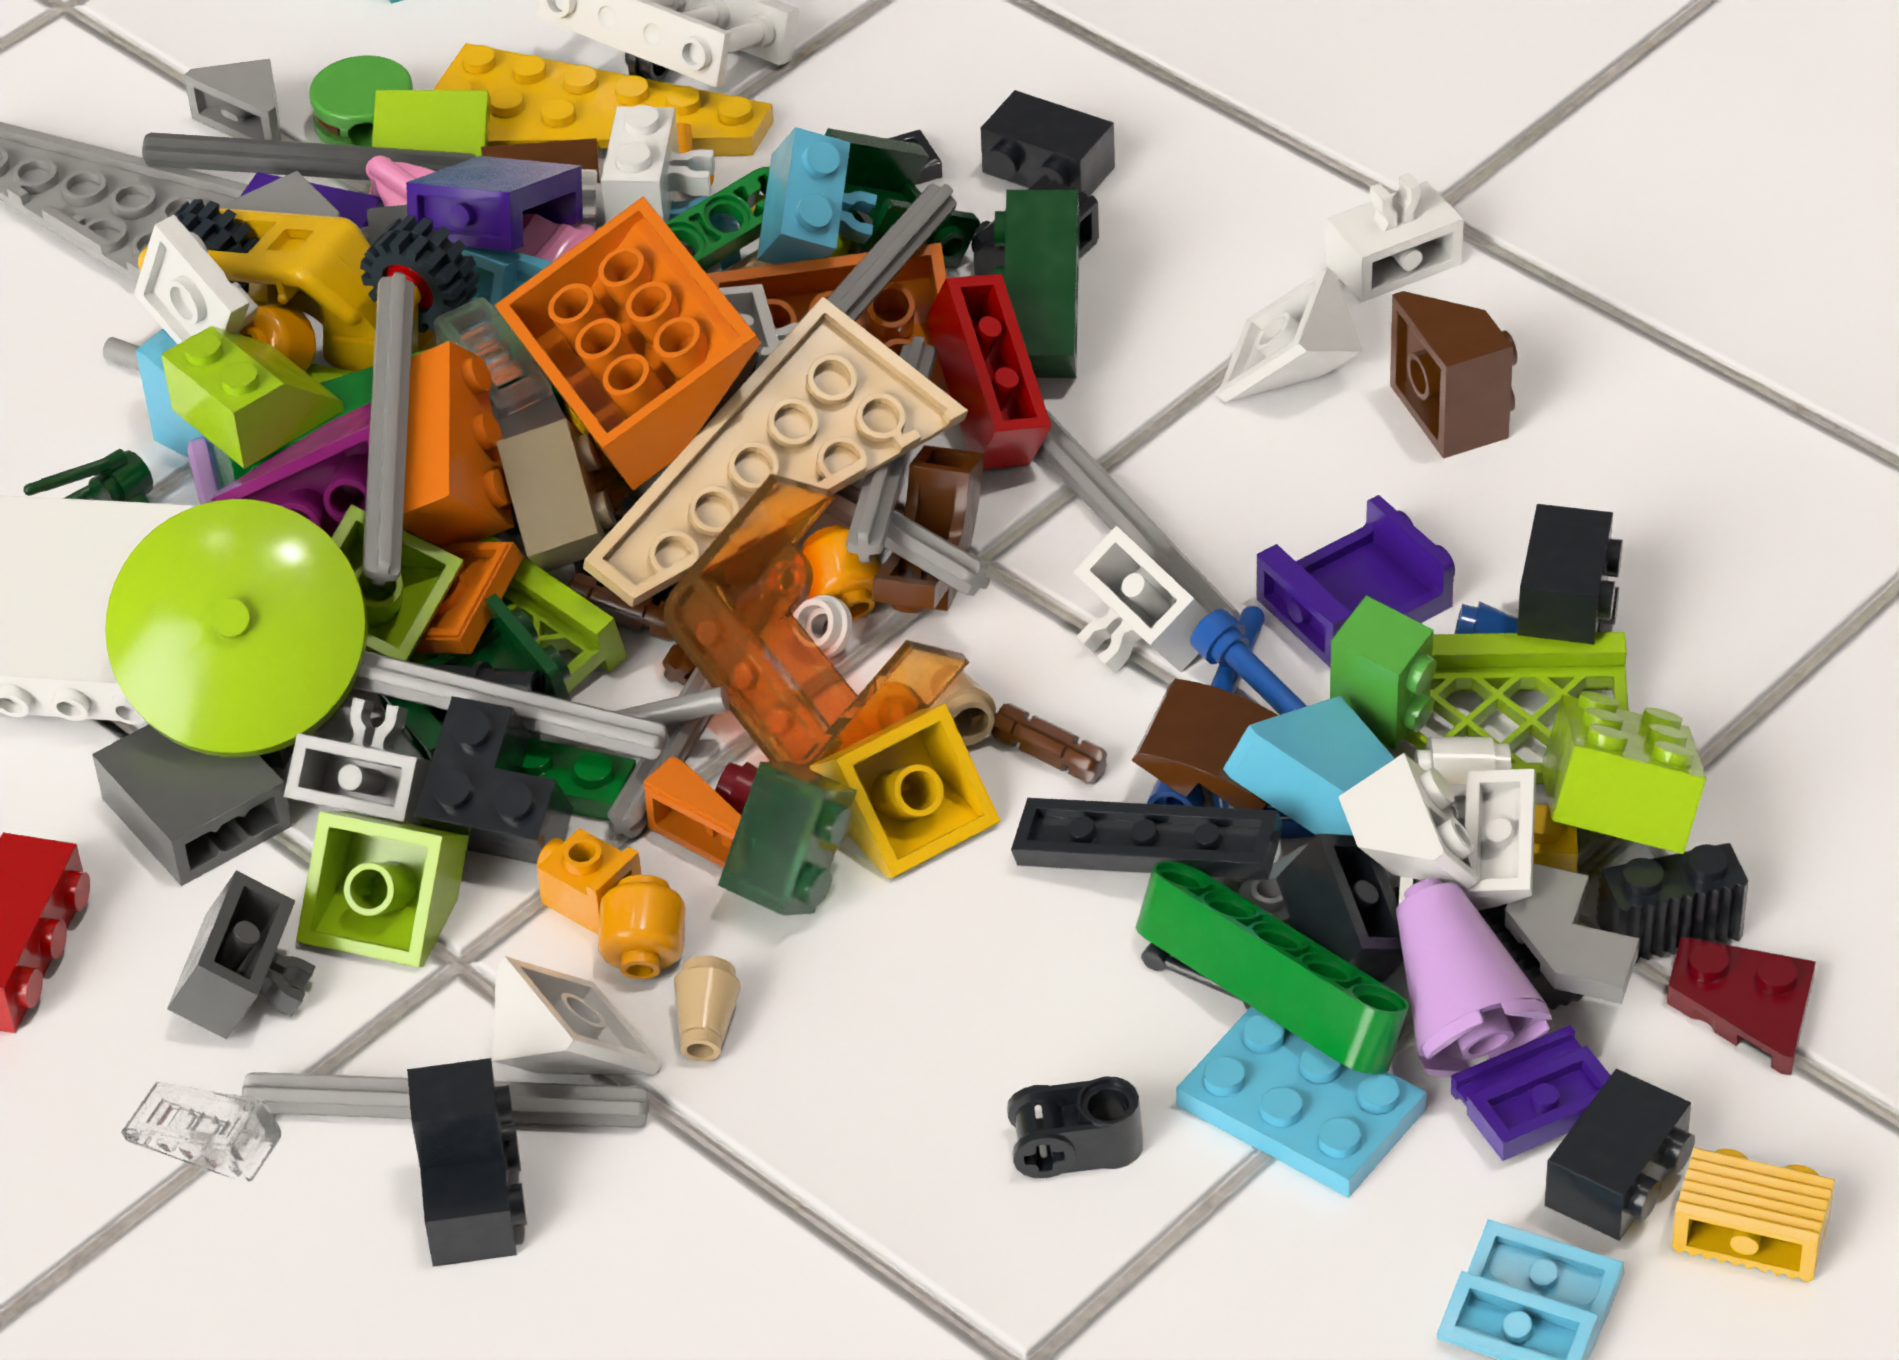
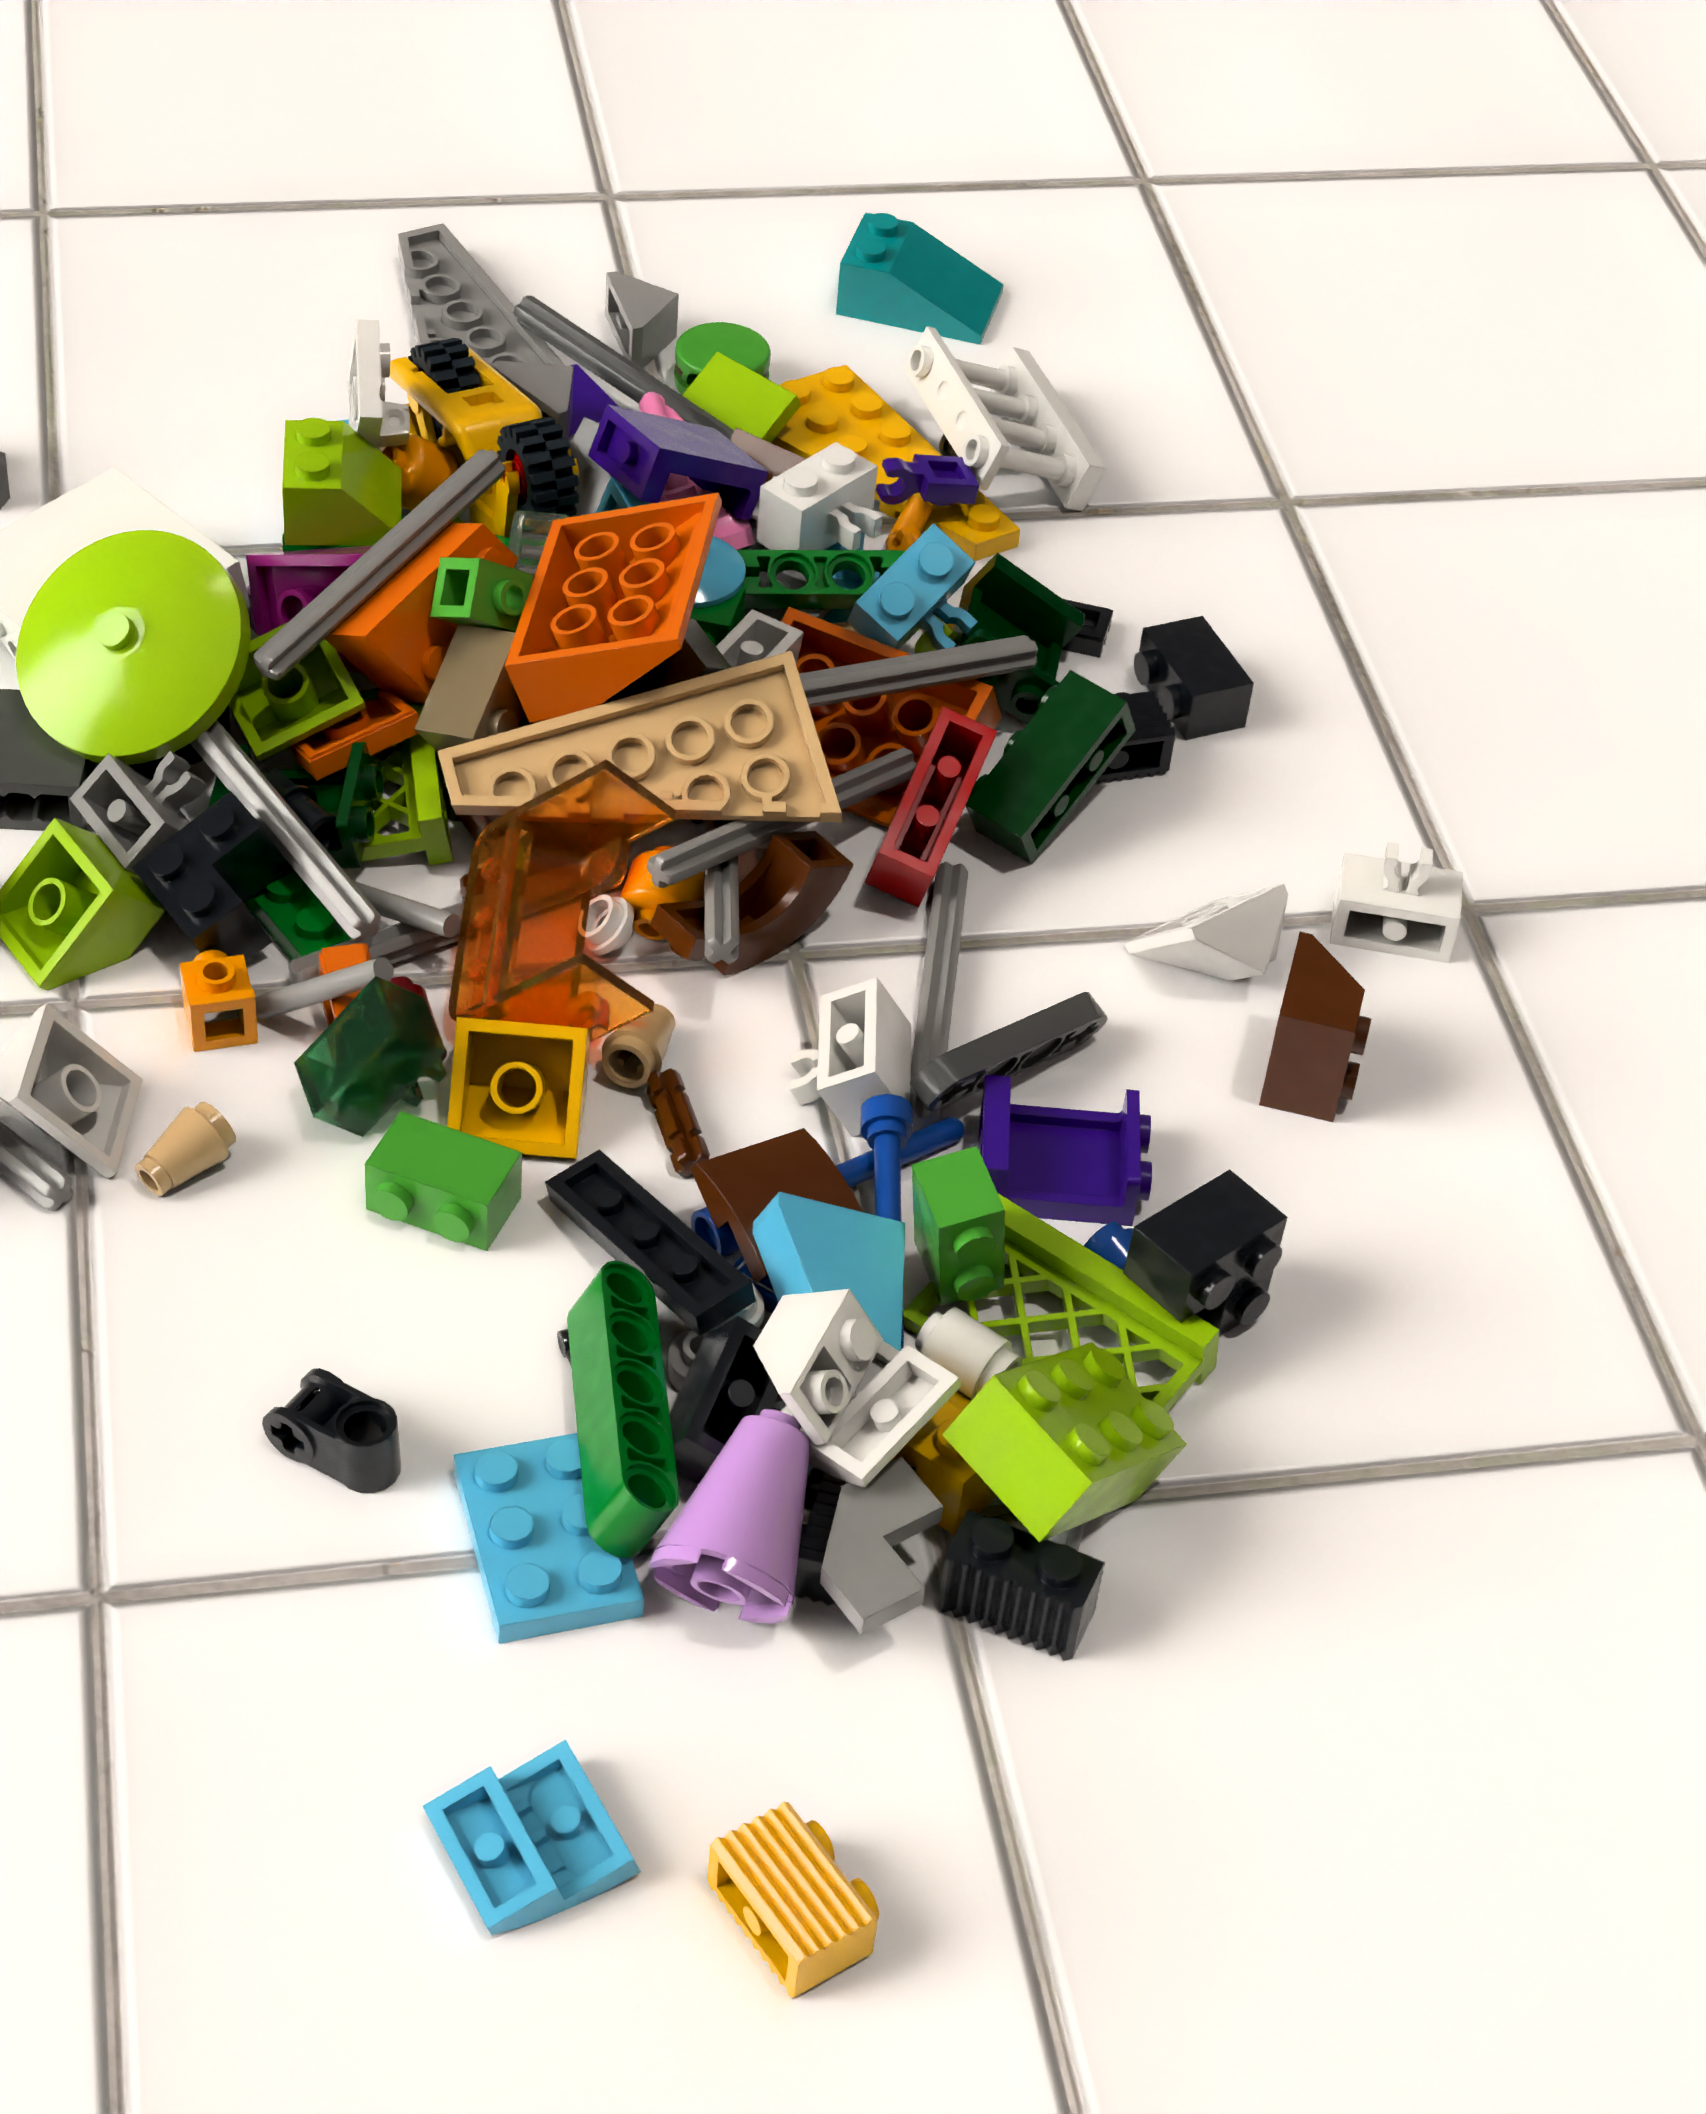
camera: 30 degrees right, 0 degrees up
(116, 478) = (244, 522): dark green plant -> none
(507, 402) = (480, 593): none -> bright green brick
(641, 926) = (209, 1057): light orange head -> none
(684, 90) = (936, 478): none -> dark purple plate
(697, 802) = (322, 988): none -> light grey bar
(935, 898) = (443, 1180): none -> bright green brick
(1245, 528) = (1008, 1050): none -> dark grey beam
(1530, 1091) = (732, 1664): dark purple plate -> none
(1619, 1155) = (726, 1762): black brick -> none
(1744, 995) = (1009, 1711): dark red wing -> none

